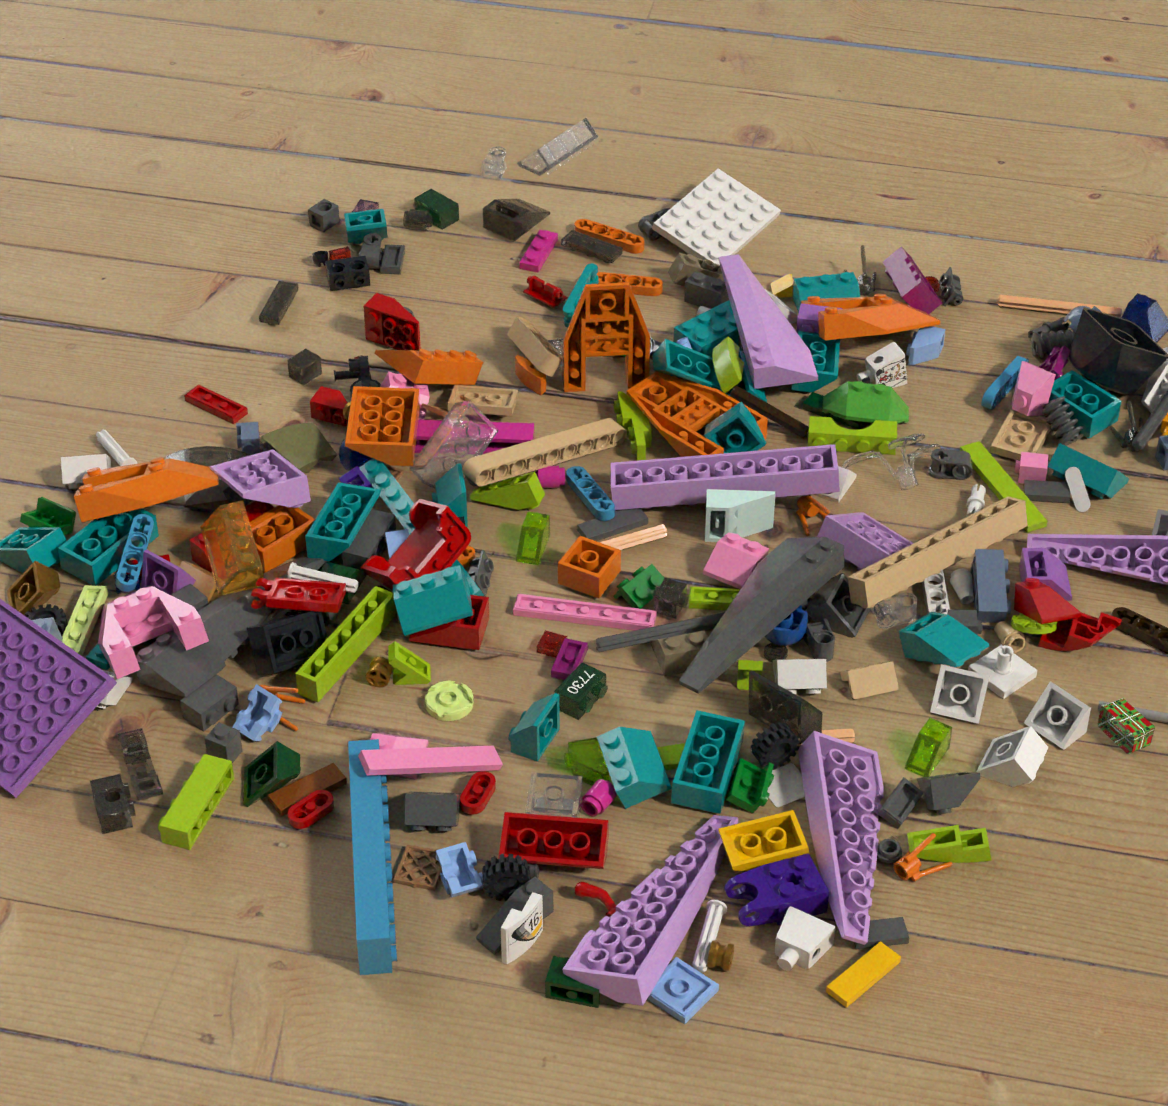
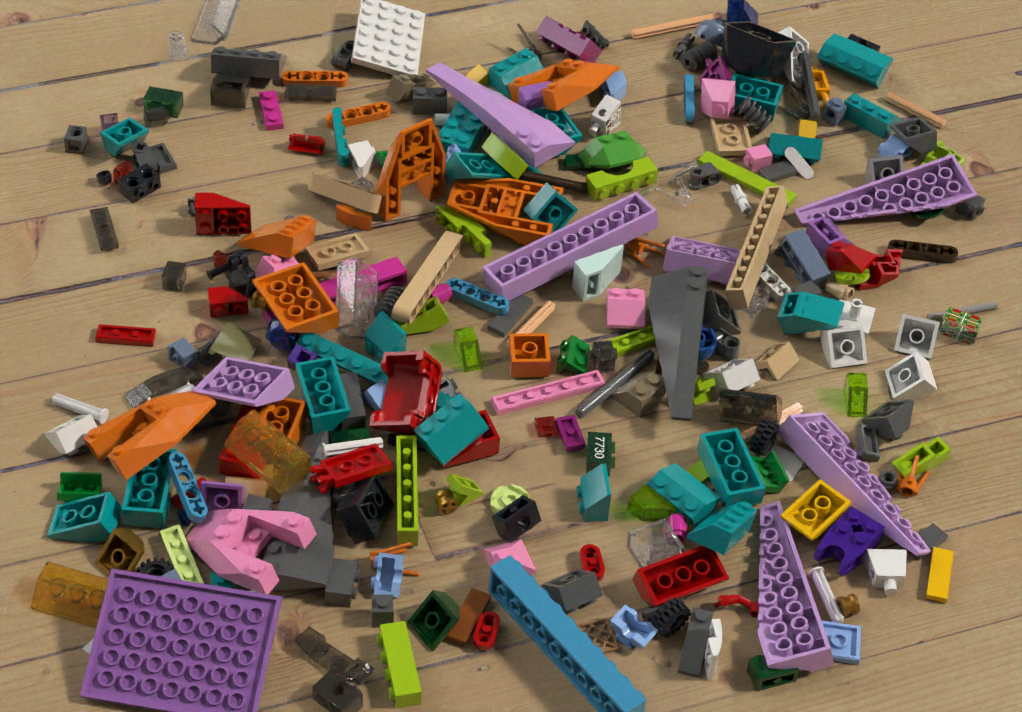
camera: 35 degrees left, 5 degrees up
(421, 709) = (516, 518): none -> black brick
(430, 760) = (551, 554): bright pink tile -> none
(547, 197) = (247, 63): none -> dark grey slope
(641, 815) = (724, 527): none -> teal slope
(963, 585) = (782, 265): white cone -> none
(1122, 460) = (807, 128): none -> yellow slope

